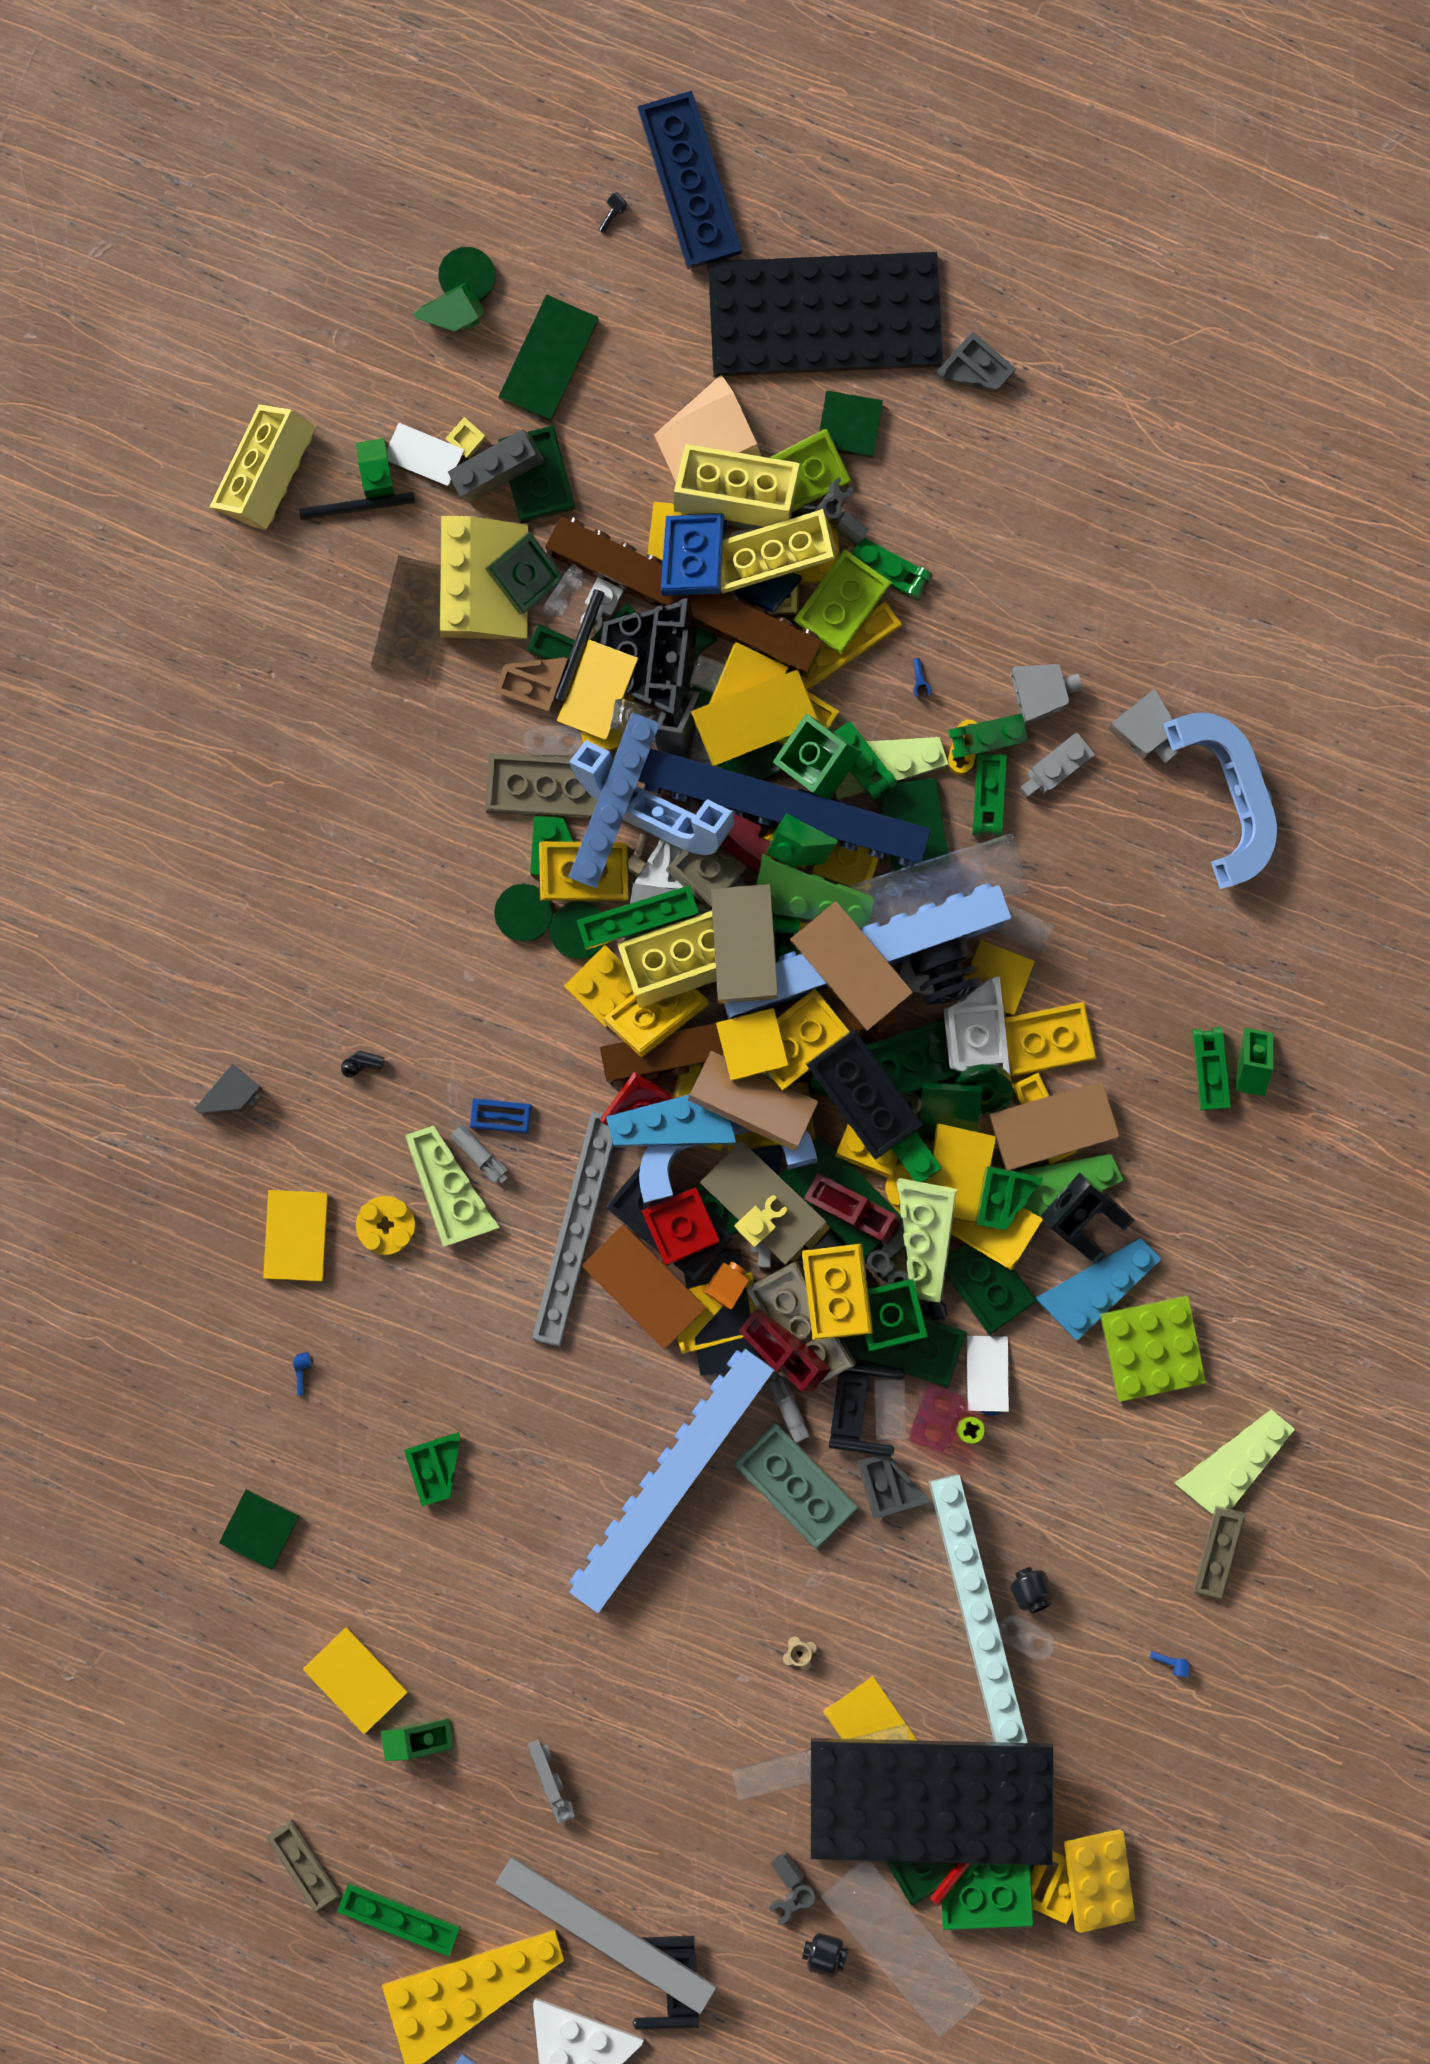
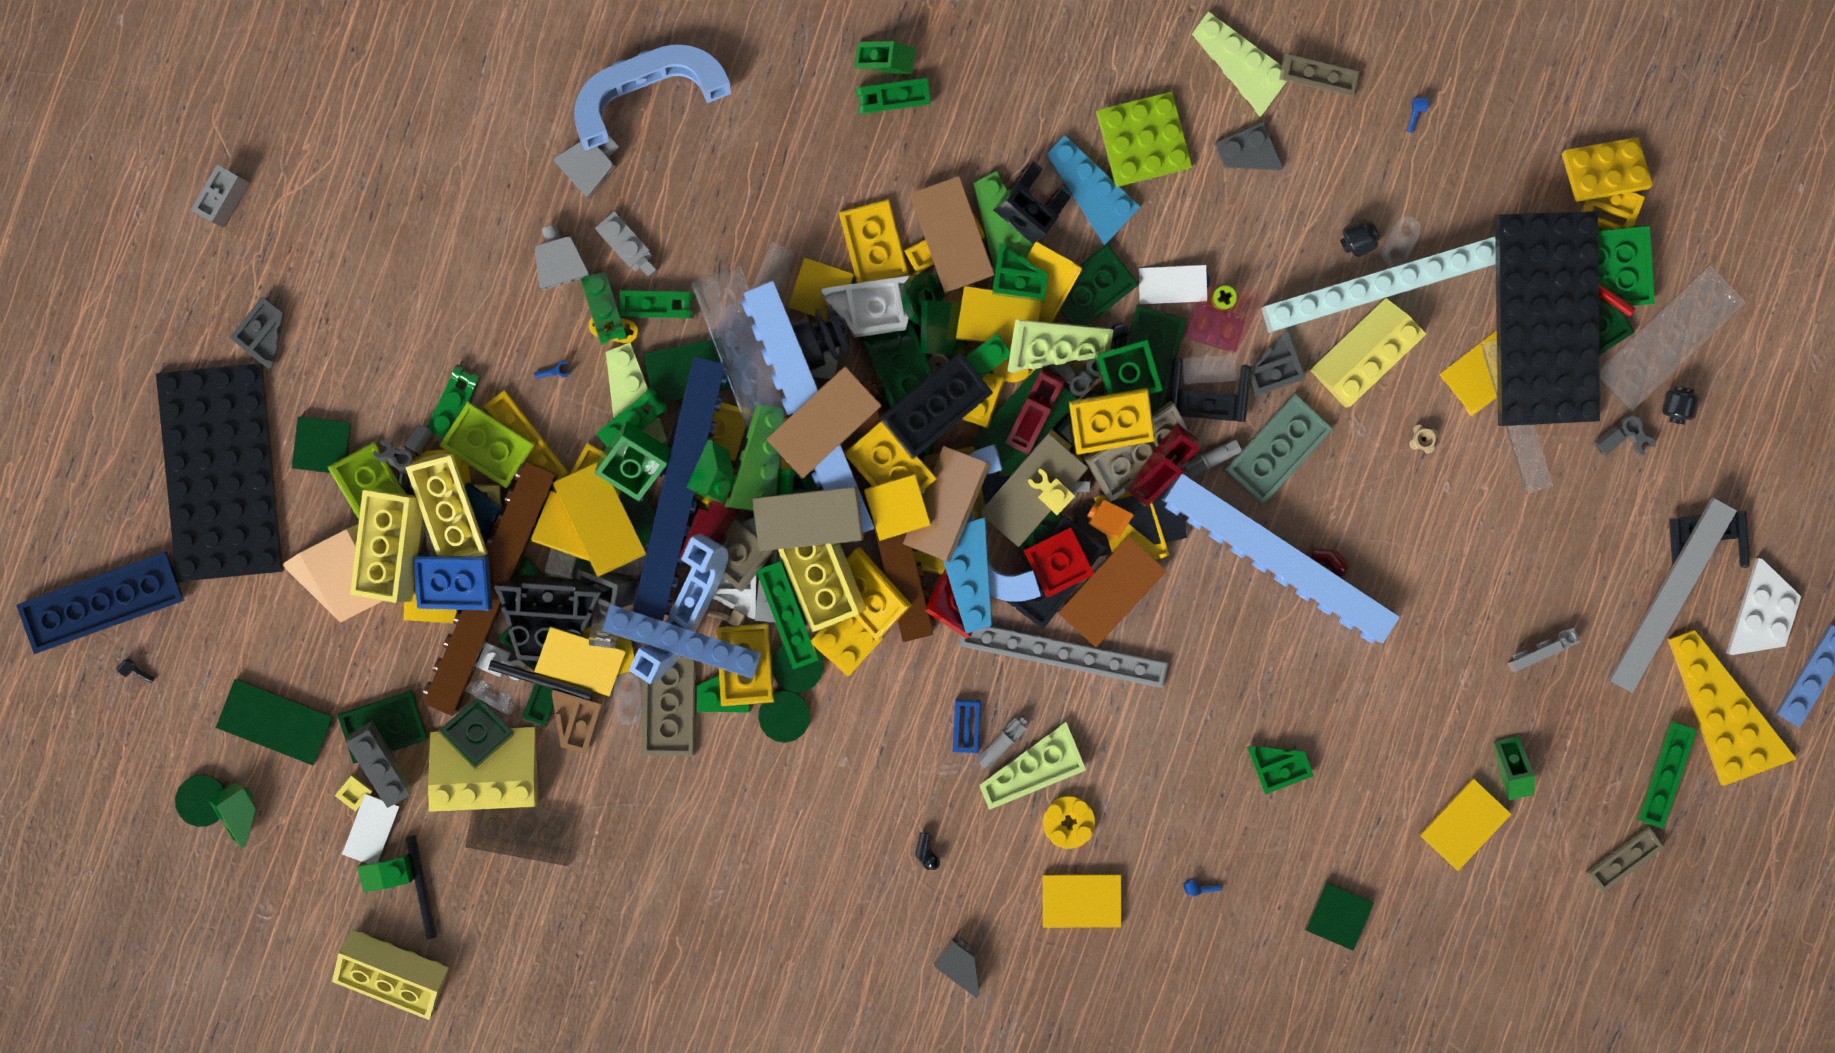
camera: 80 degrees left, 5 degrees up
(666, 1543) = (1334, 559): none -> dark red arm
(901, 1592) = (1367, 352): none -> light yellow slope
(1127, 330) = (220, 196): none -> light grey hinge
(1136, 1468) = (1249, 150): none -> dark grey wing

